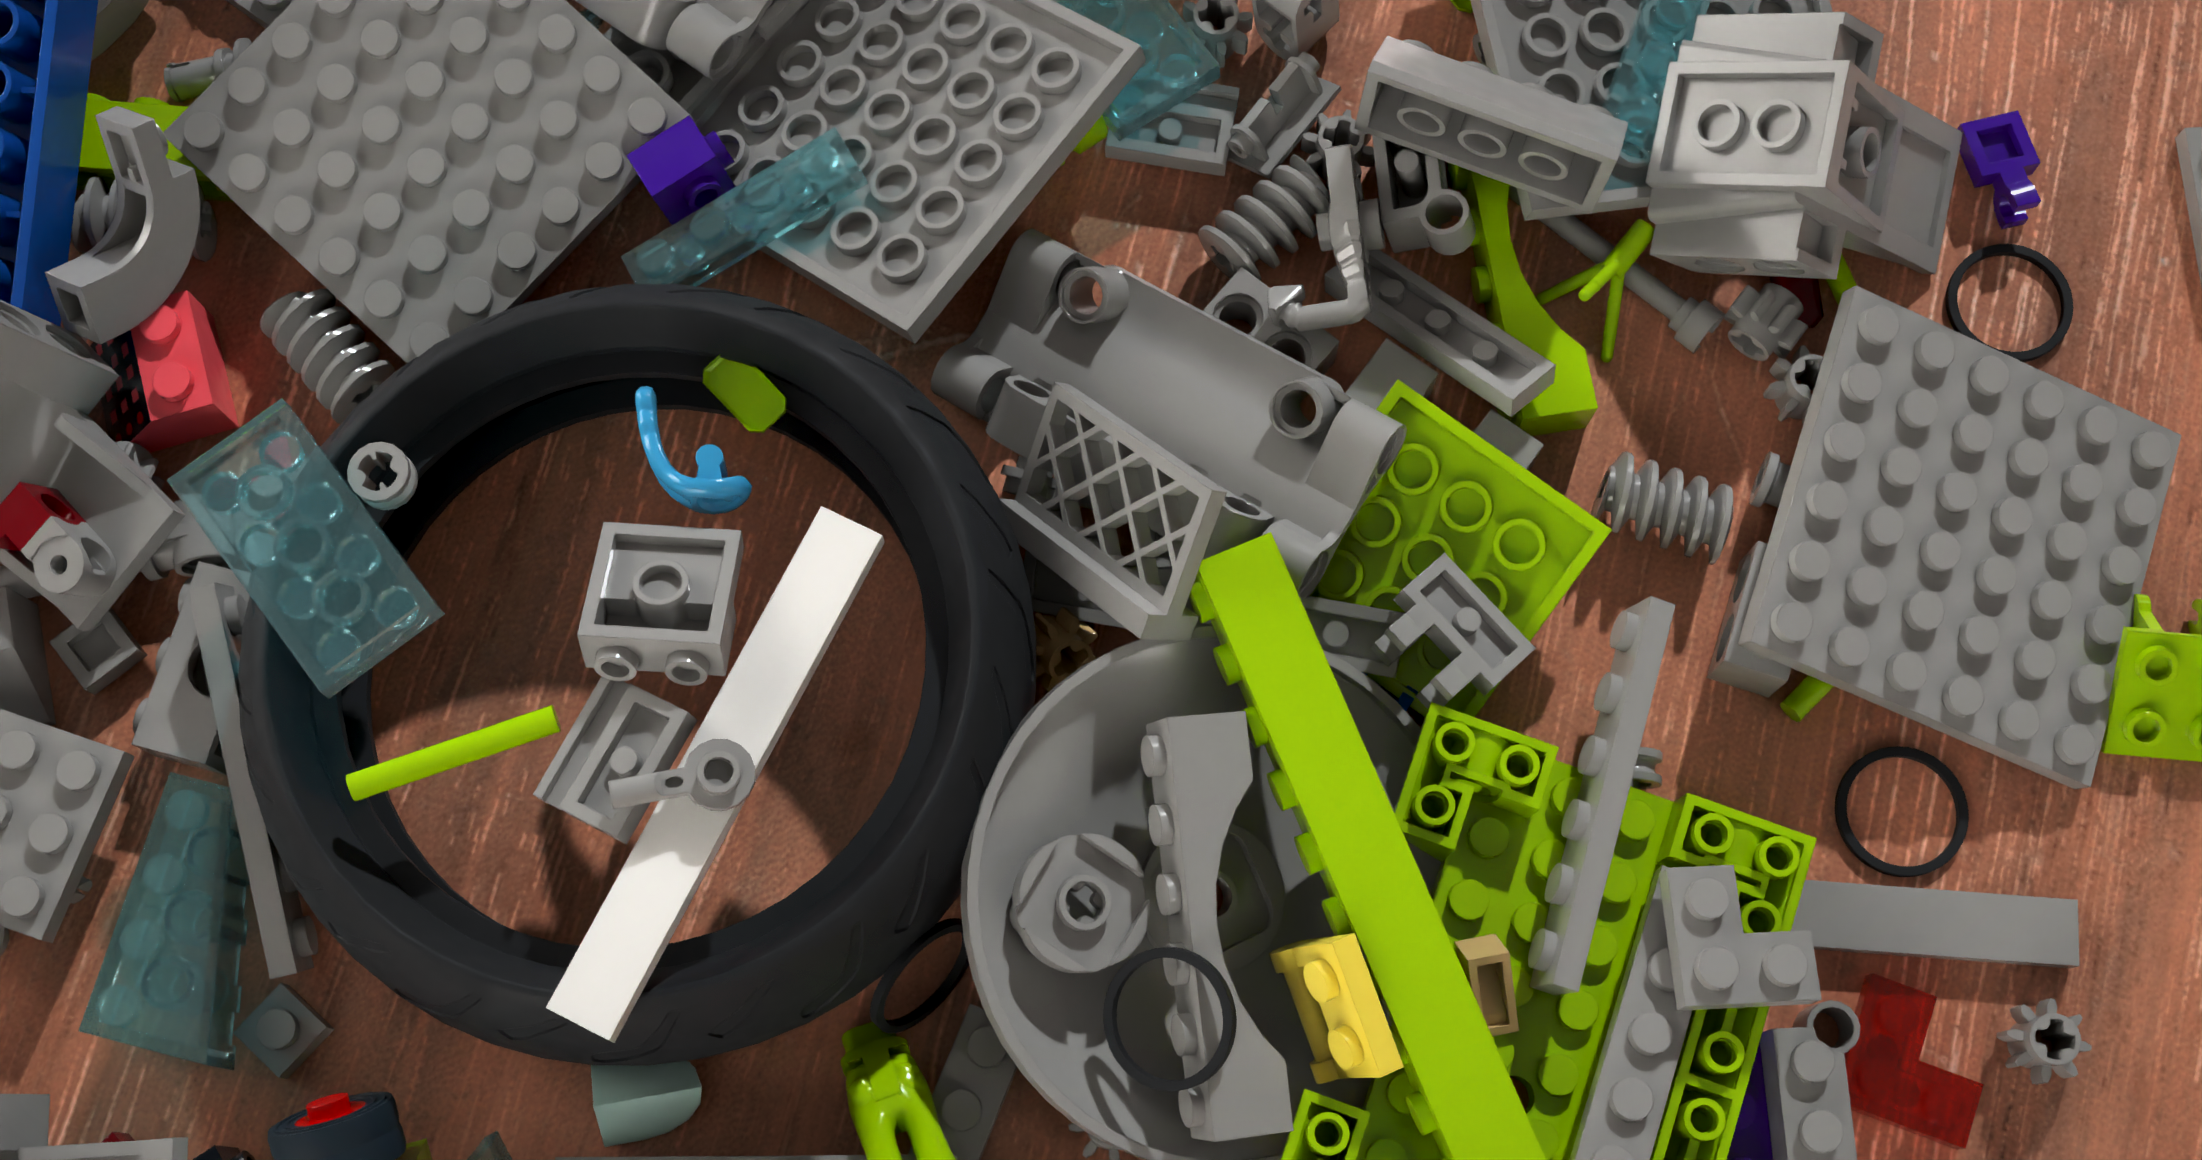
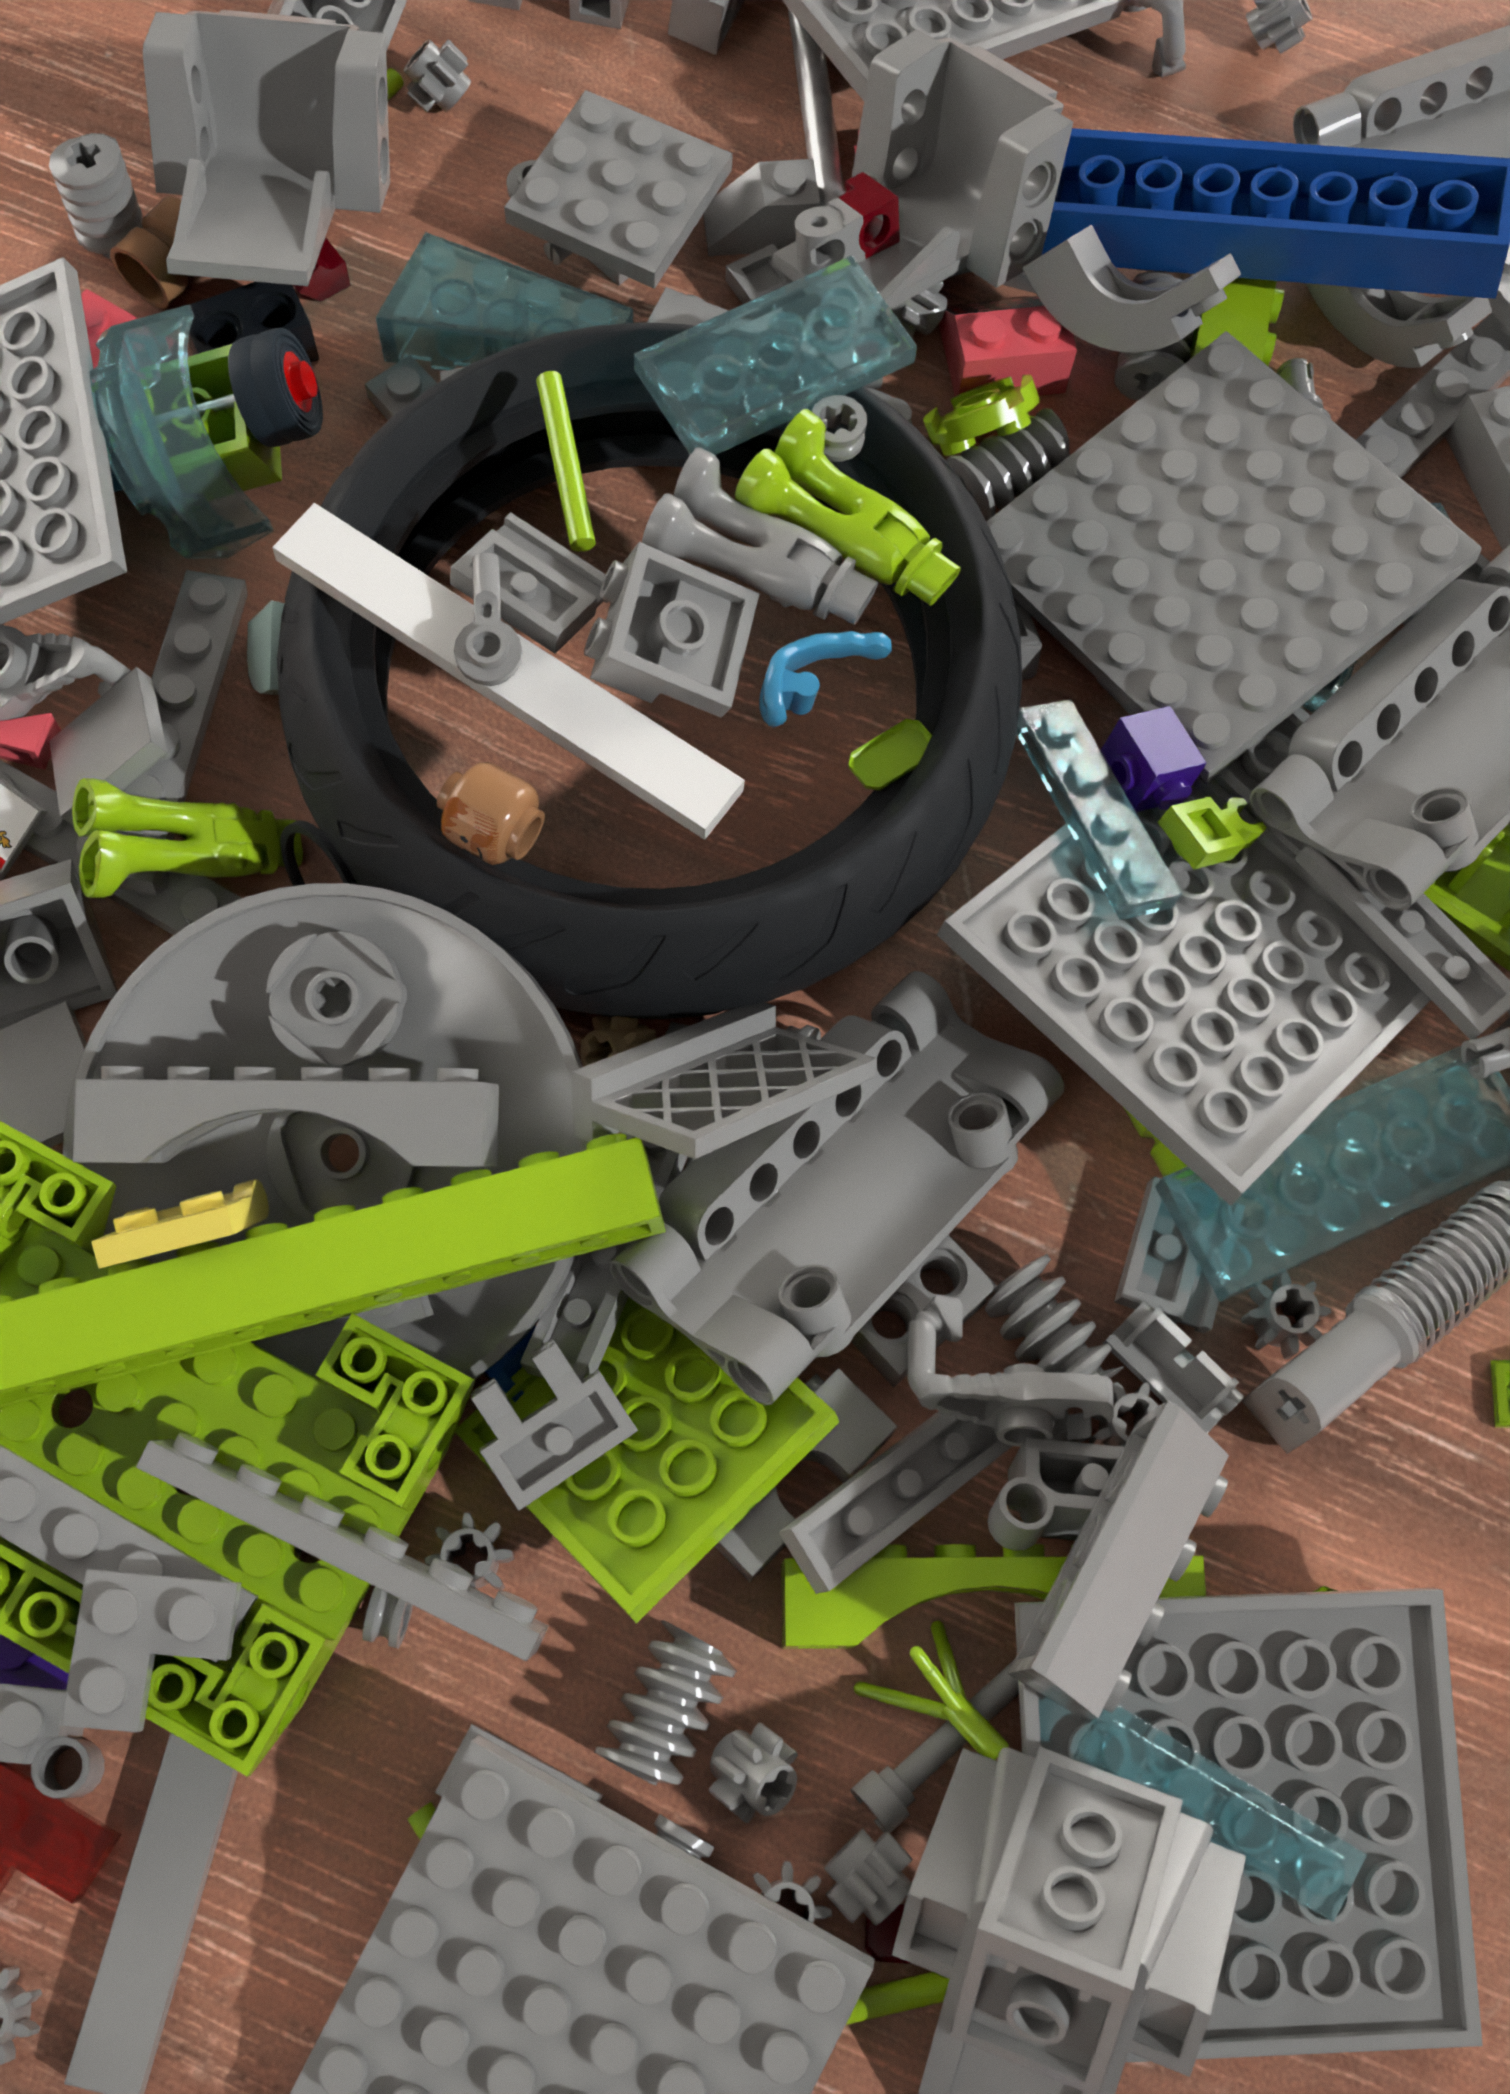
camera: 90 degrees right, 5 degrees down
(271, 365) = (982, 410): none -> lime plate
(516, 412) = (874, 529): none -> lime piece
(560, 496) = (784, 559): none -> light grey piece
(754, 113) = (1209, 834): none -> lime plate
(896, 746) = (490, 813): none -> medium nougat head
(1112, 1033) = (213, 1094): black piece -> none
(1490, 978) = (181, 1391): tan piece -> none
(1563, 719) = (455, 1546): none -> light grey gear
(1703, 427) = (753, 1772): none -> light grey gear
(1944, 773) = (224, 1893): black piece -> none

